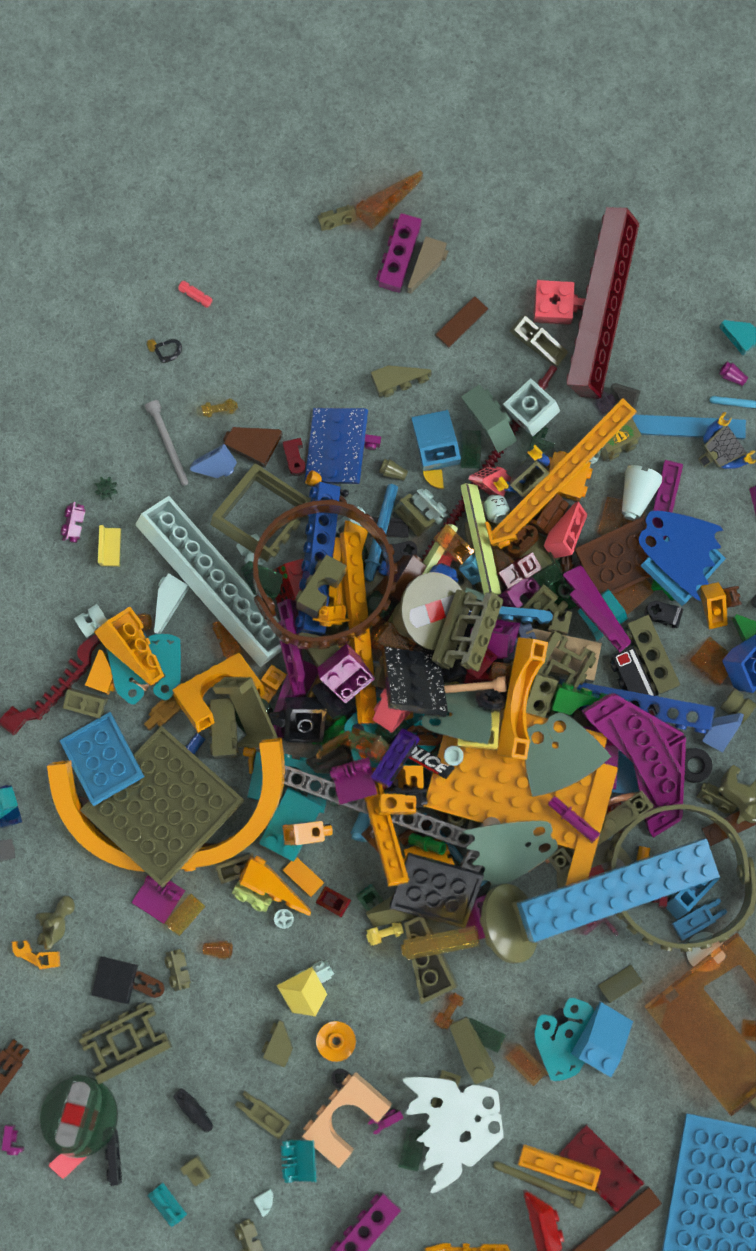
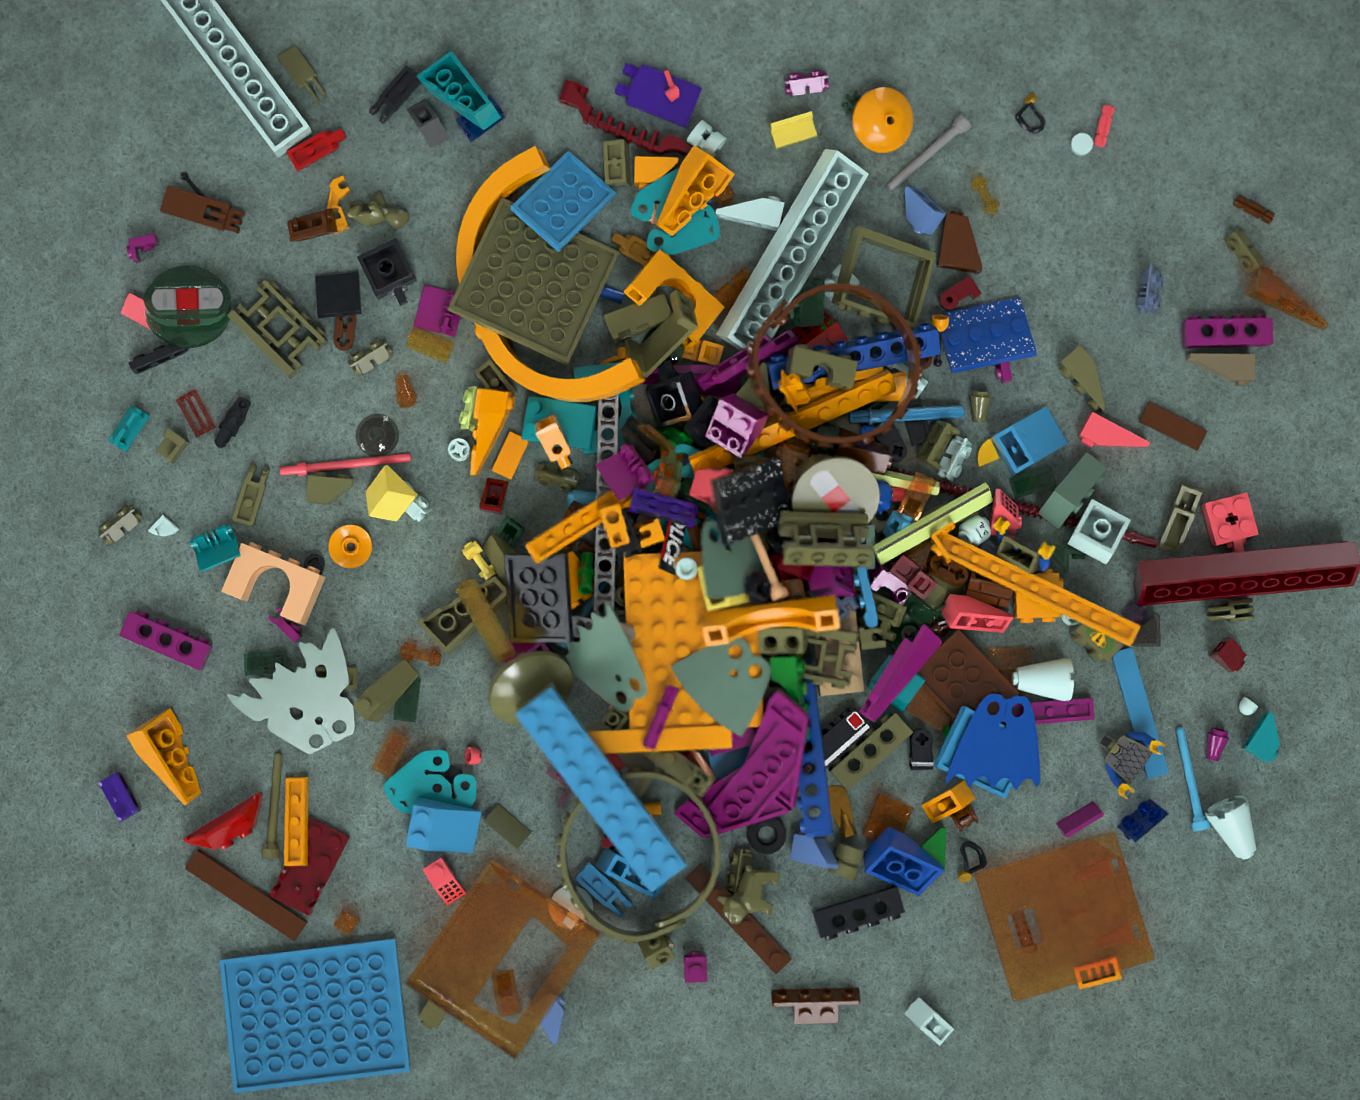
camera: 65 degrees right, 5 degrees up
(39, 647) = (649, 95): none -> dark purple tile
(40, 634) = (673, 92): none -> coral hand
(46, 983) = (312, 225): none -> reddish brown hinge
(120, 929) = (389, 283): none -> black hinge
(123, 478) = (871, 117): none -> light orange dish
(190, 1137) = (204, 429): none -> clear red tile
(204, 316) = (1081, 144): none -> light aqua tile
(254, 1061) = (303, 468): none -> coral bar
(257, 986) = (377, 446): none -> clear smoke dish
(305, 198) = (1254, 209): none -> reddish brown axle
(331, 850) = (547, 475): none -> olive hinge
(338, 295) = (1154, 280): none -> sand blue hinge
(449, 378) = (1105, 433): none -> coral slope
(550, 991) = (475, 755): none -> coral hinge
(628, 326) = (1230, 611): none -> olive arm
(649, 1054) = (444, 881): none -> coral slope
(660, 1151) = (346, 922): none -> clear orange wheel
(664, 339) = (1228, 655): none -> dark red slope
(695, 695) = (841, 811): none -> pearl gold piece
(710, 339) = (1247, 707): none -> light aqua hinge

